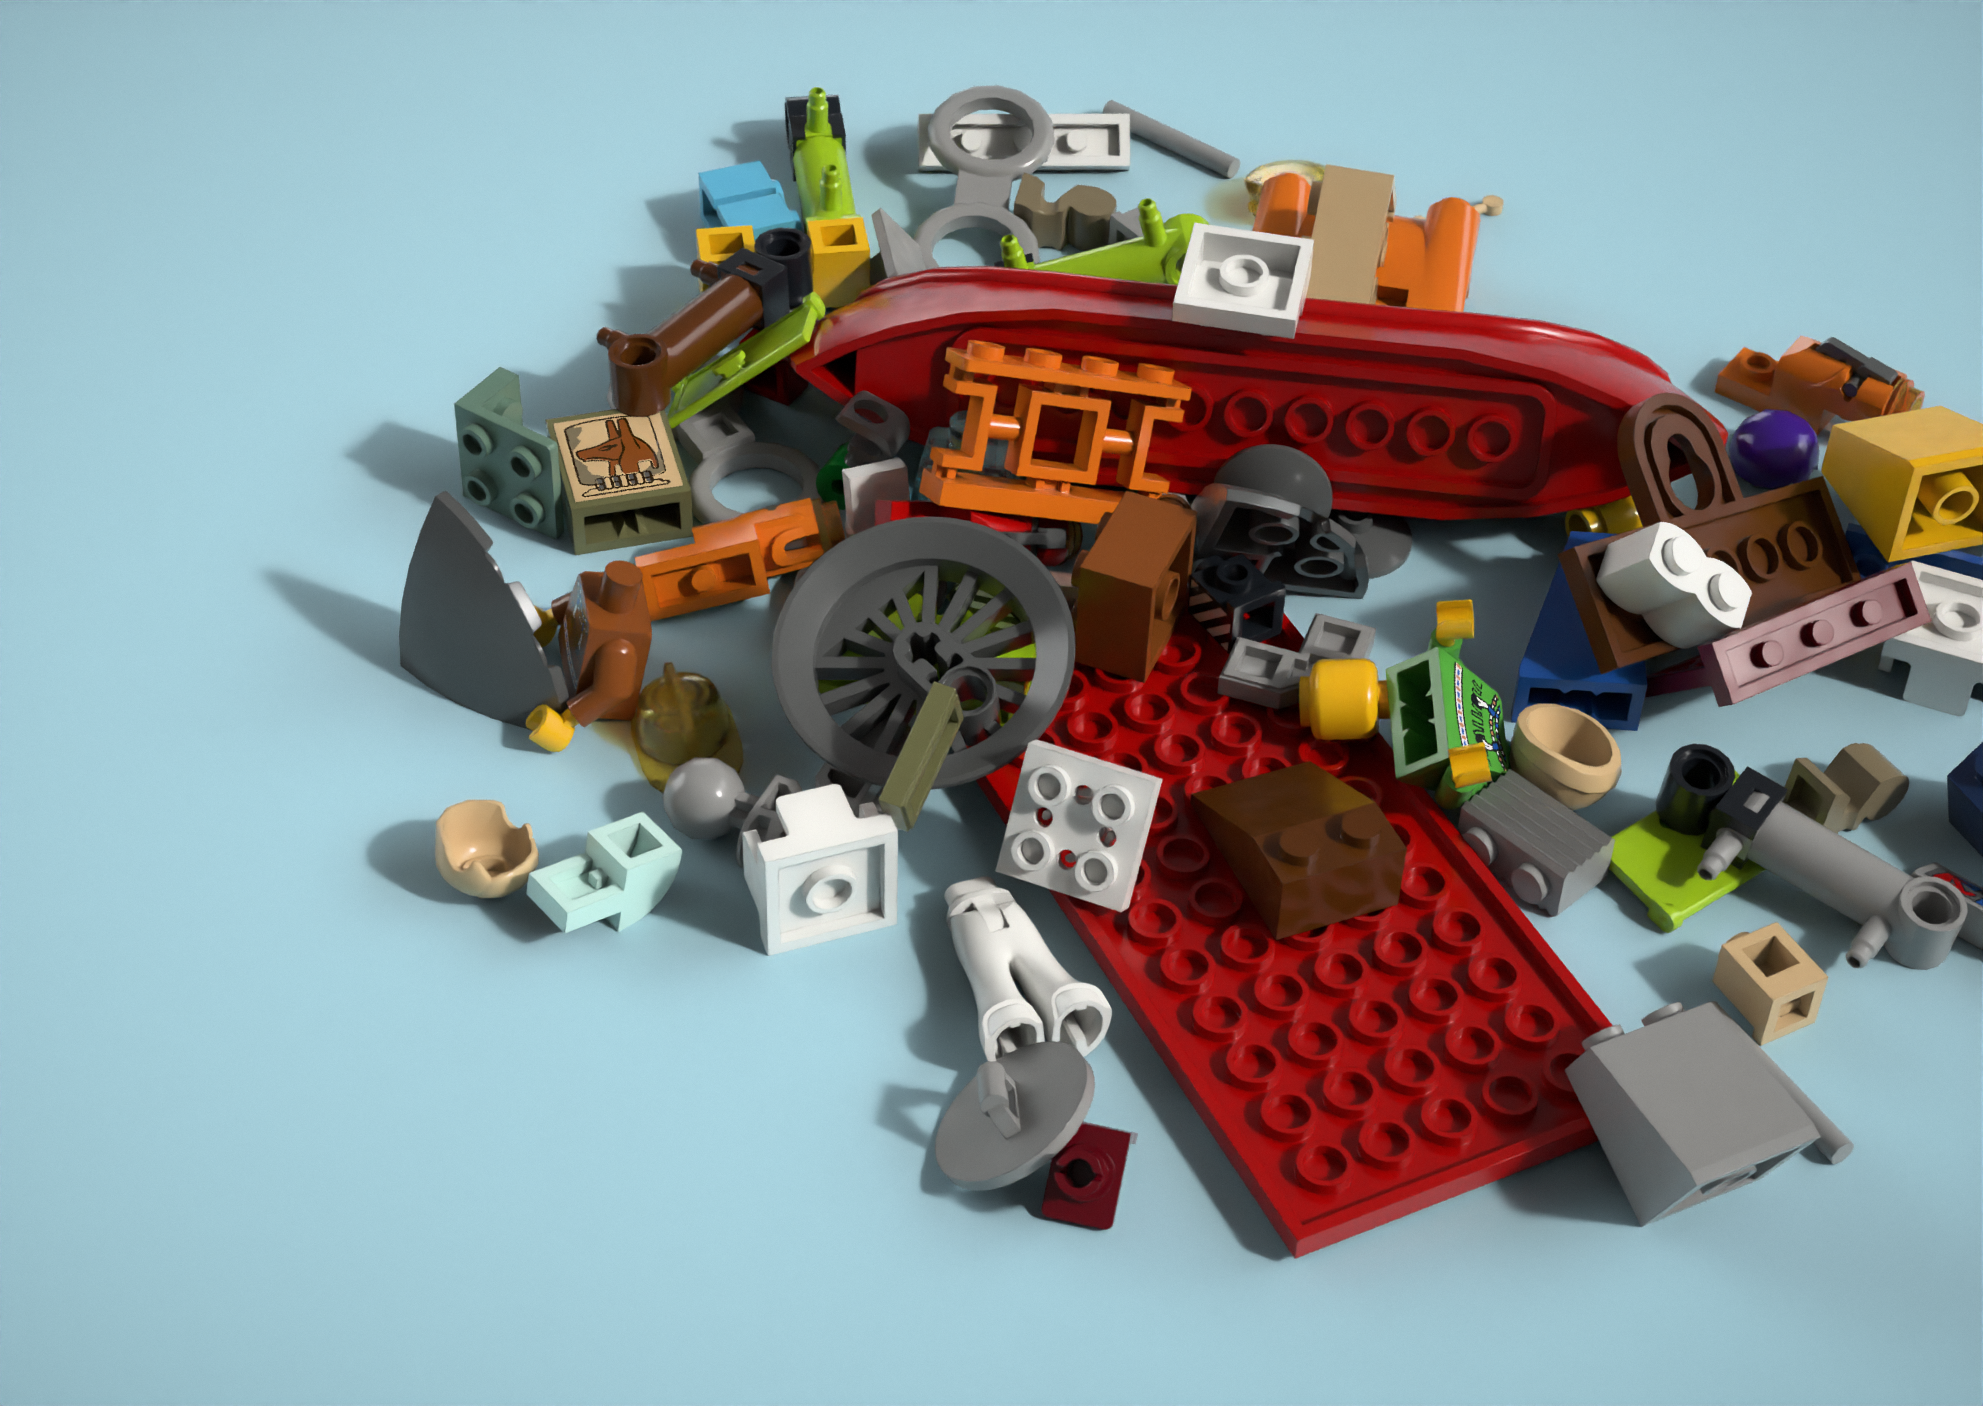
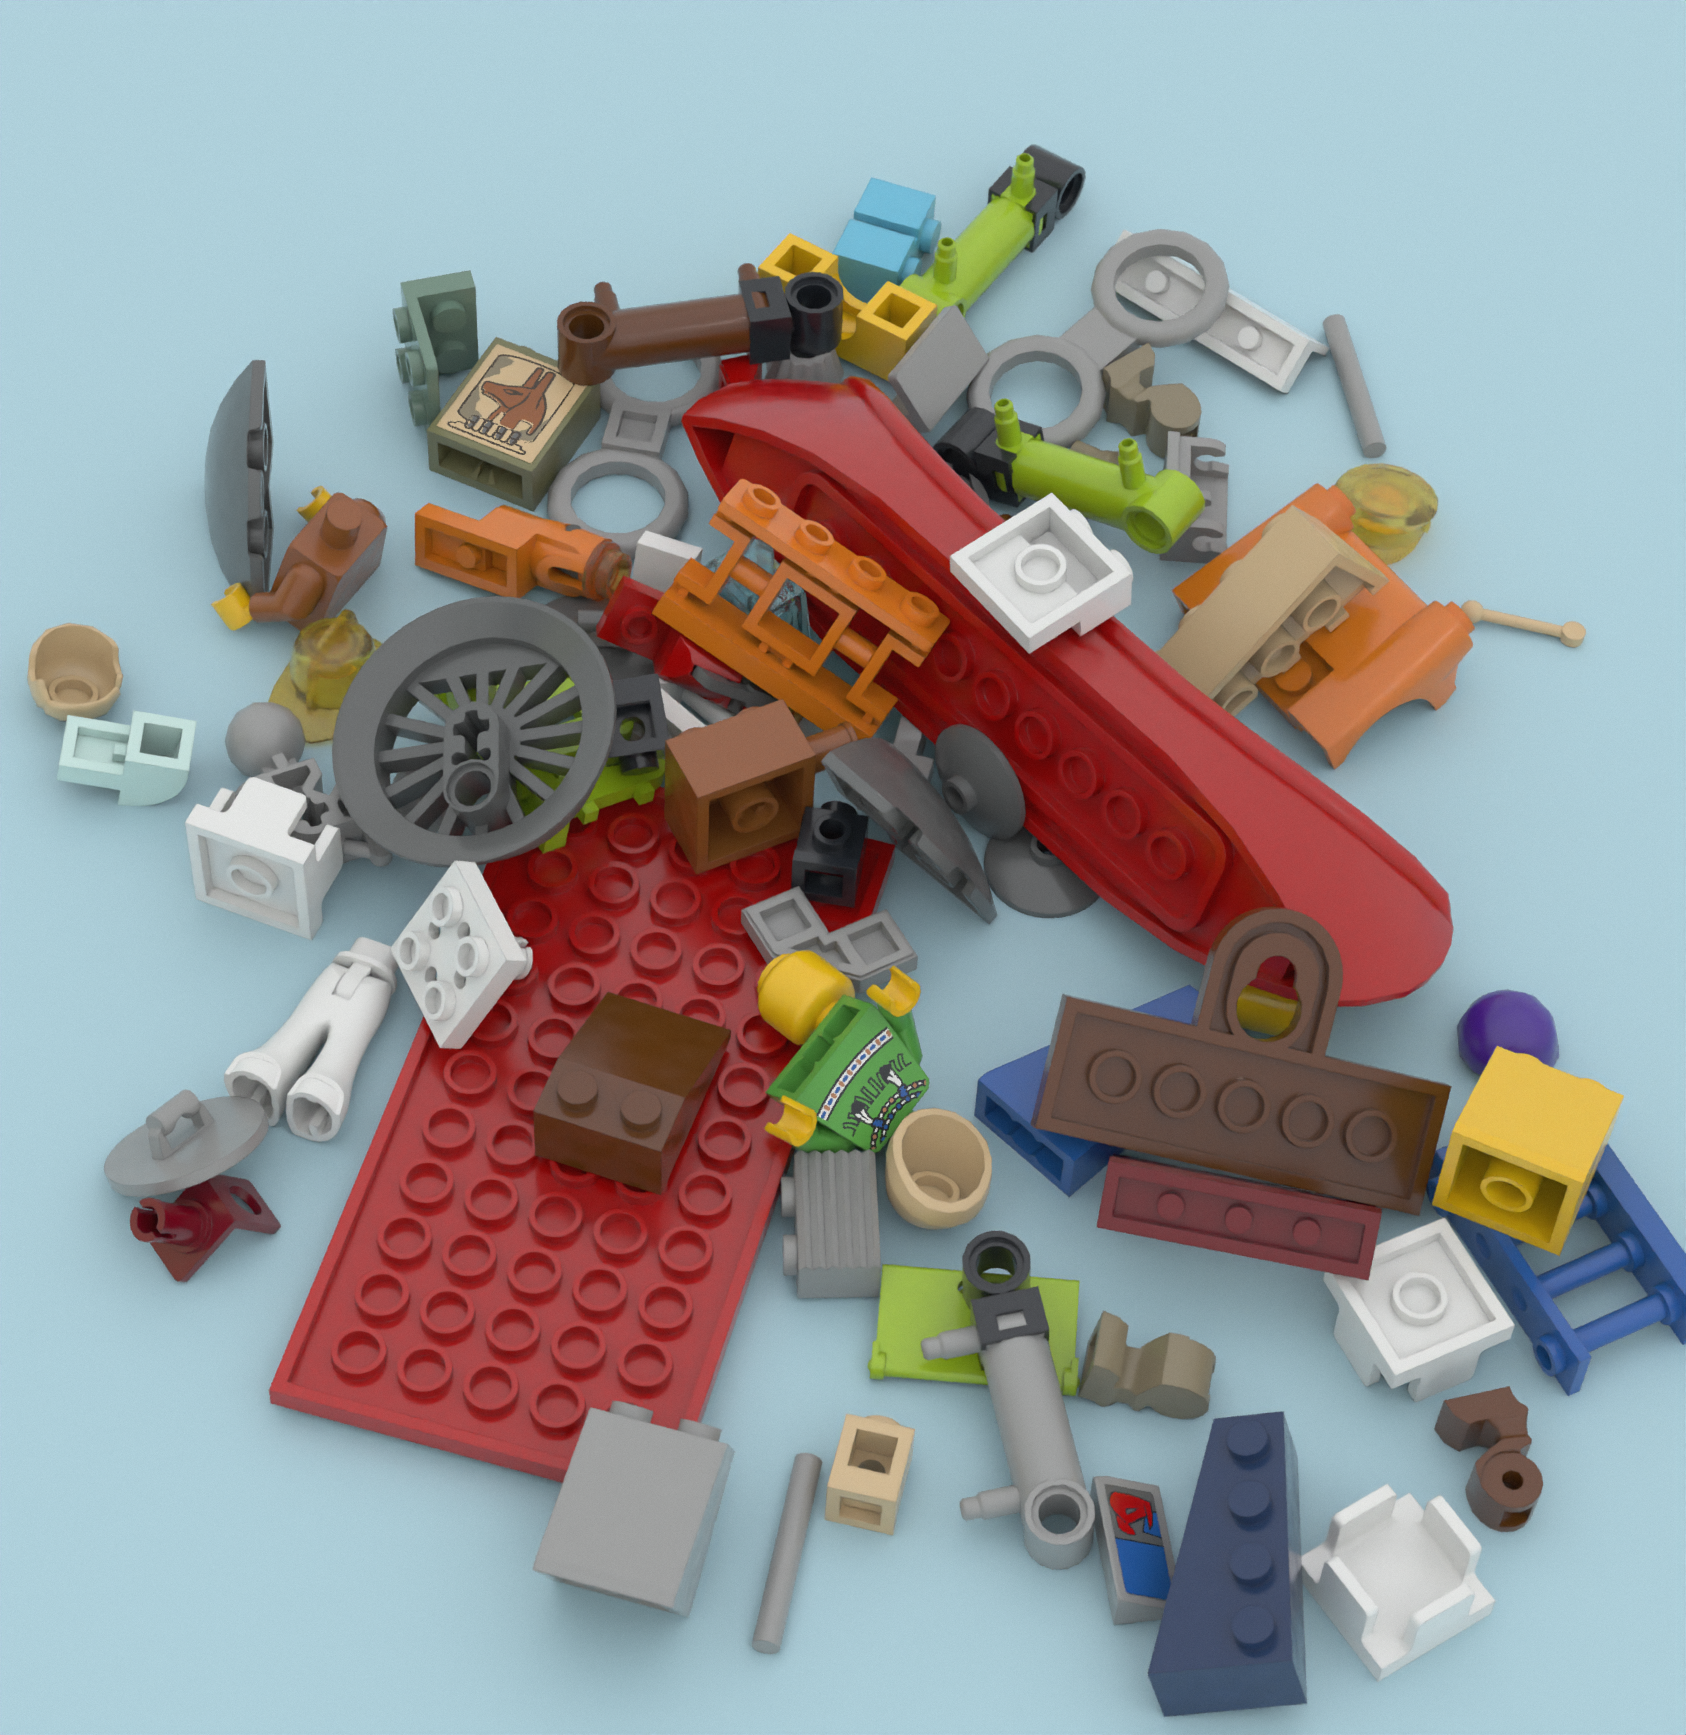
camera: 40 degrees right, 10 degrees up
(745, 360) = (692, 382): lime door -> none
(869, 445) = (692, 521): dark grey leg -> none
(922, 756) = (375, 817): olive tile -> none
(1674, 585) = (1137, 1106): white brick -> none
(1818, 383) = (1618, 1010): orange plate -> none

